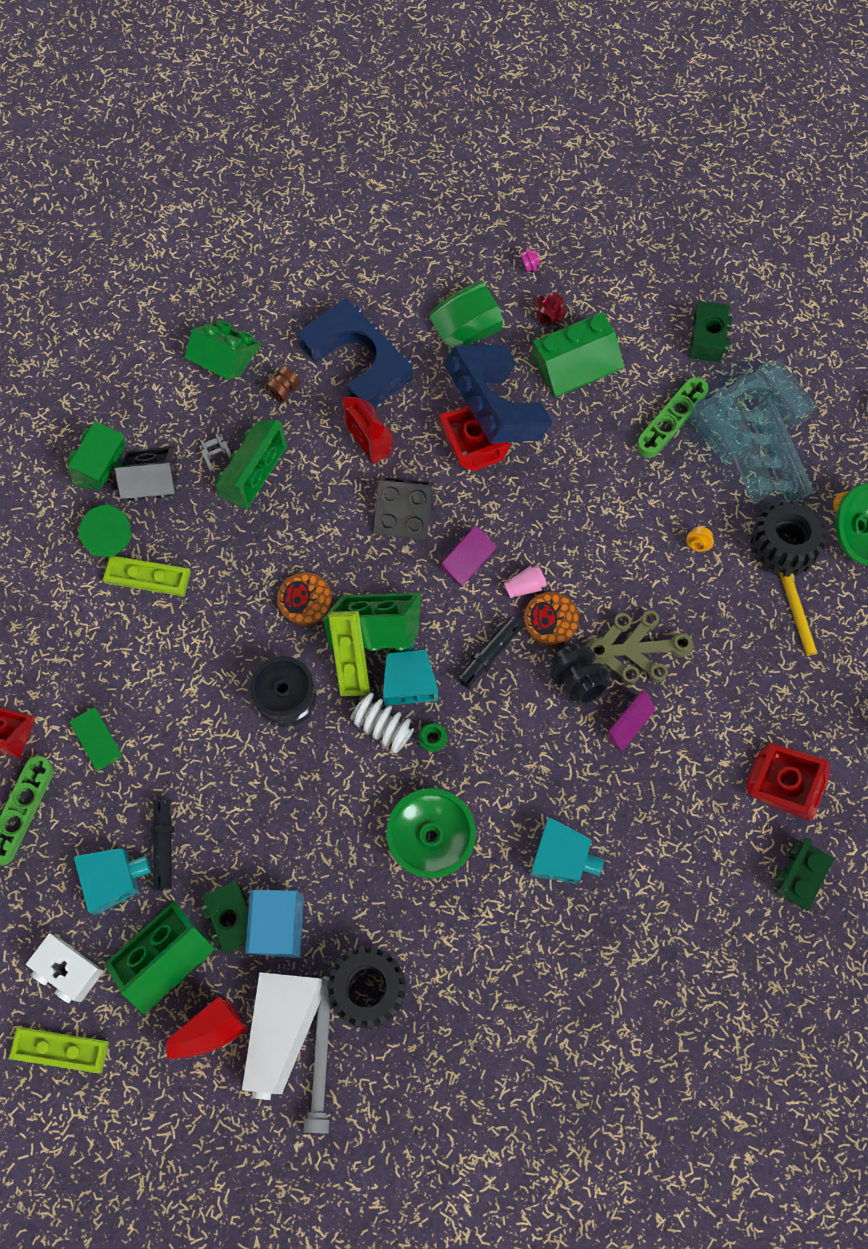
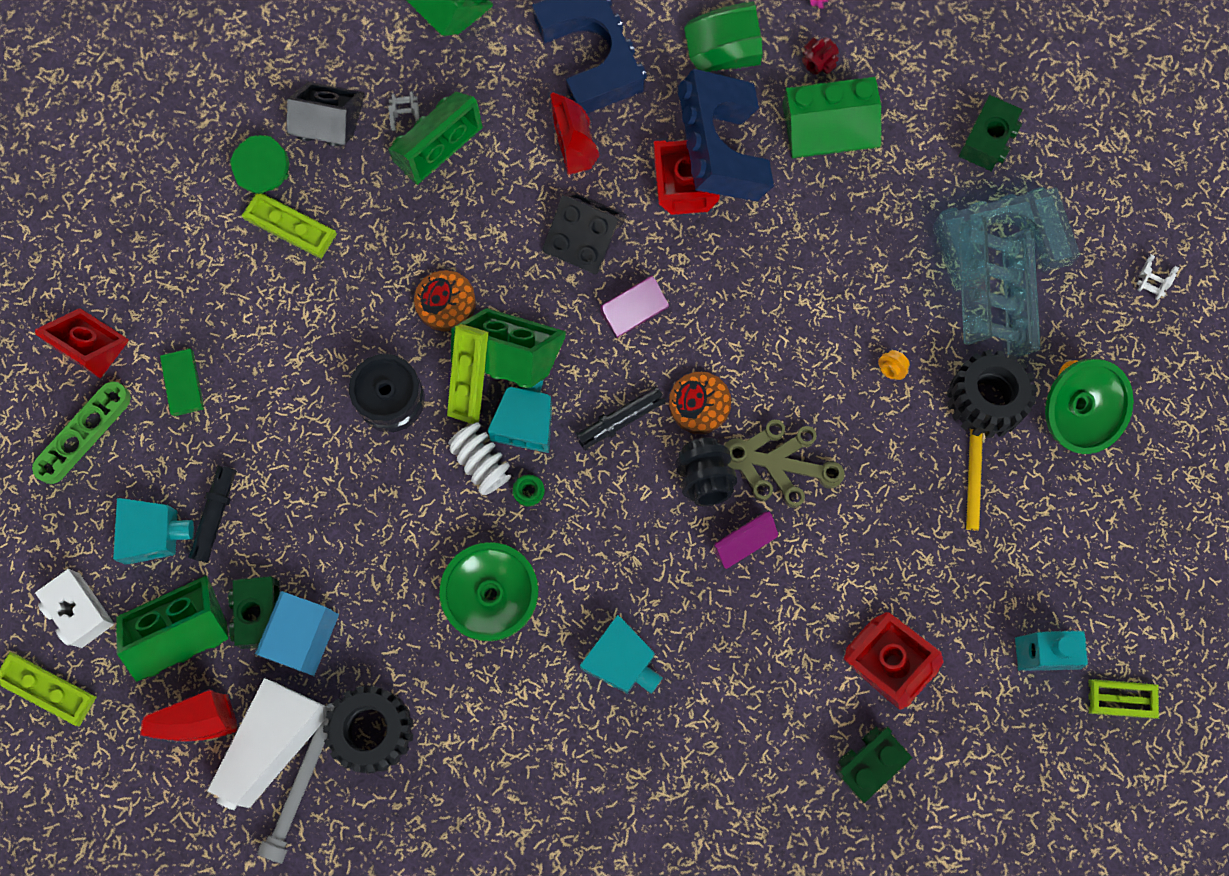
camera: 20 degrees right, 5 degrees up
(95, 456) = (273, 79): green slope -> none
(282, 384) = (499, 57): copper wheel -> none
(526, 582) = (686, 354): bright pink cone -> none
(670, 416) = (912, 216): bright green beam -> none

